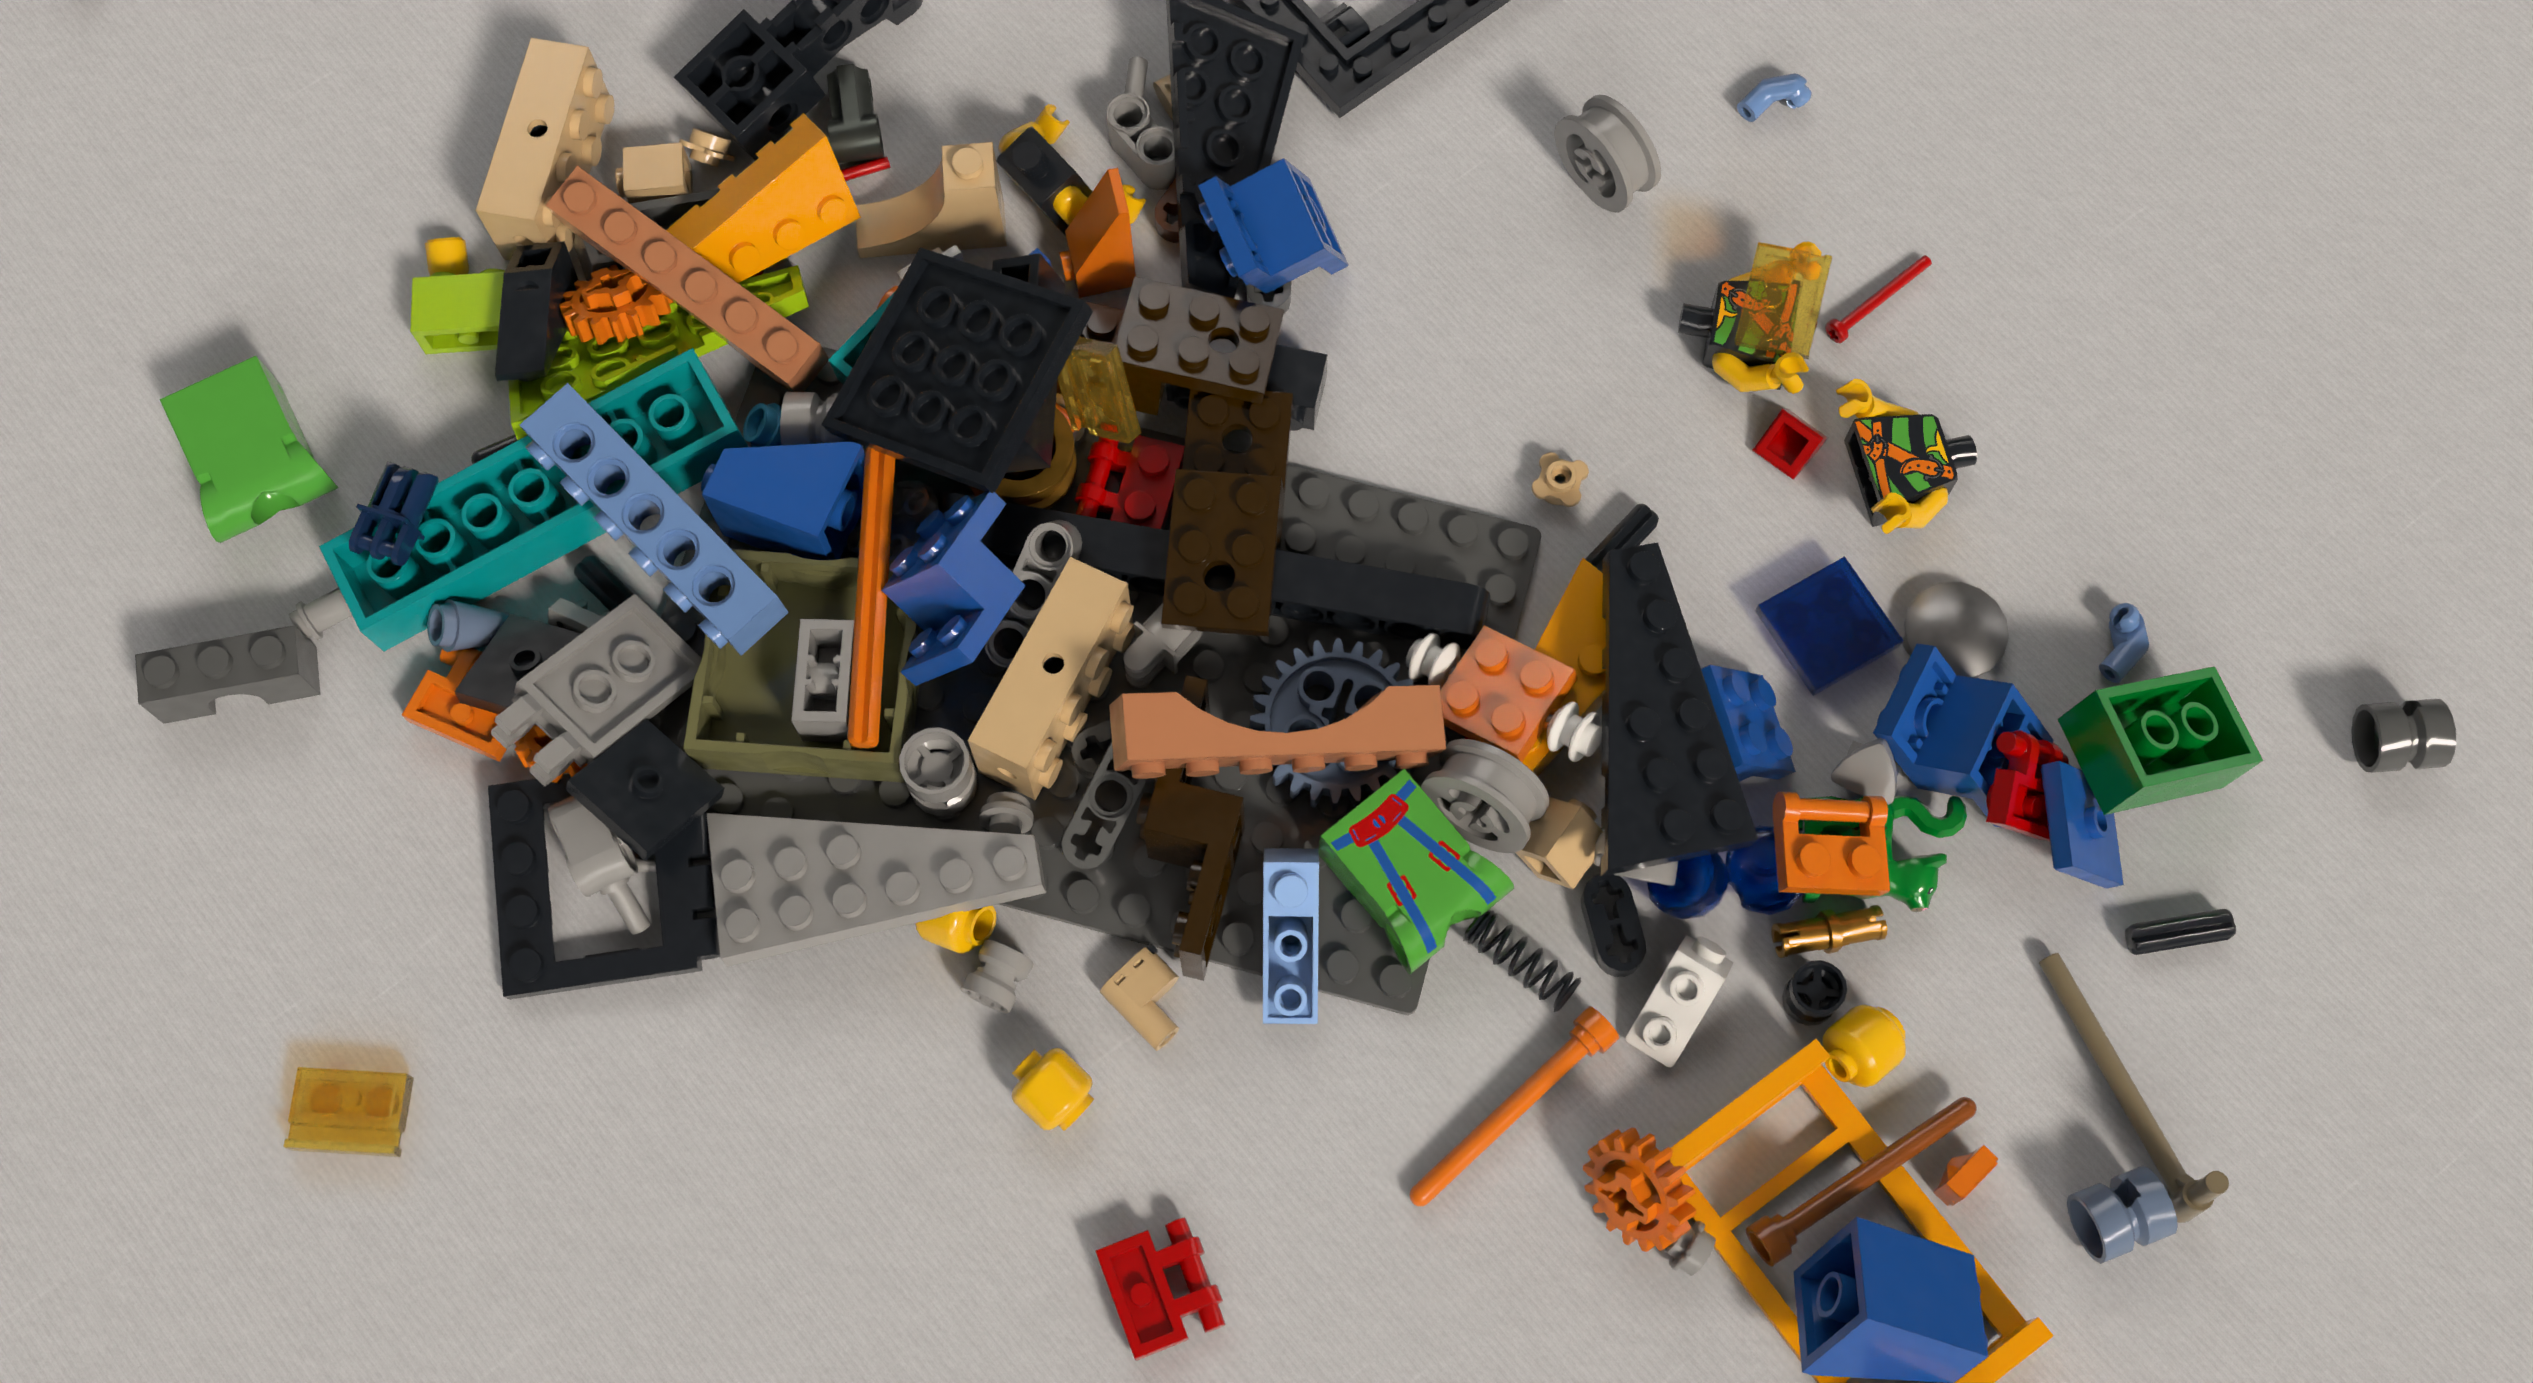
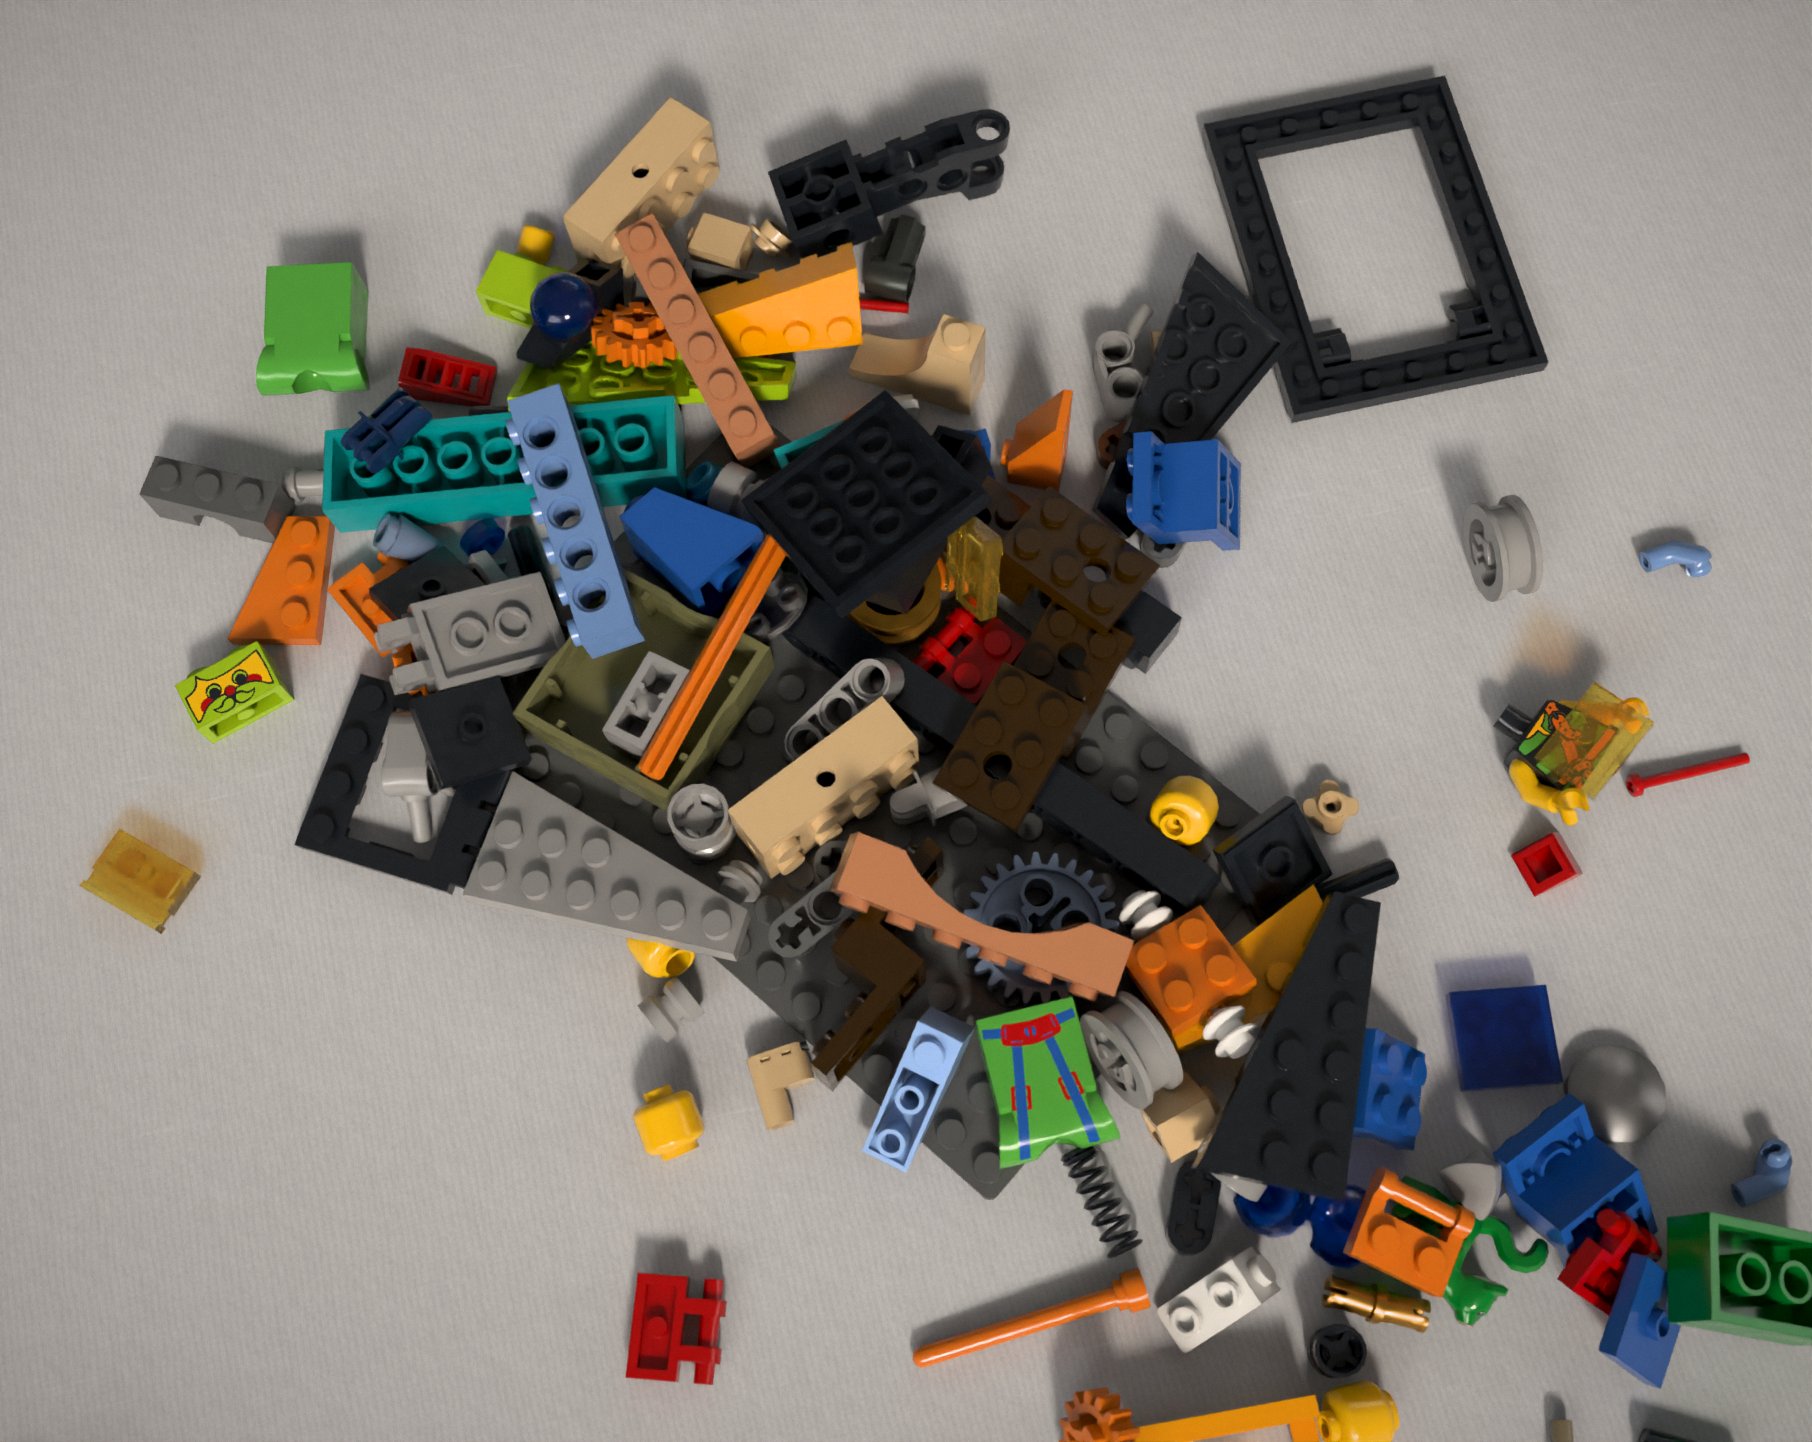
camera: 30 degrees right, 0 degrees up
(352, 867) = (233, 692): none -> lime brick
(357, 734) = (290, 588): none -> orange wing
(418, 424) = (431, 362): none -> red slope
(524, 303) = (563, 305): none -> clear blue hair
(547, 587) = (482, 535): none -> clear blue tile
(952, 587) = (777, 679): blue bracket -> none
(1045, 175) = (1024, 372): black torso -> none
(1422, 541) = (1184, 810): none -> yellow head
(1530, 554) = (1272, 860): none -> black plate
(1900, 459) = (1637, 923): torso -> none

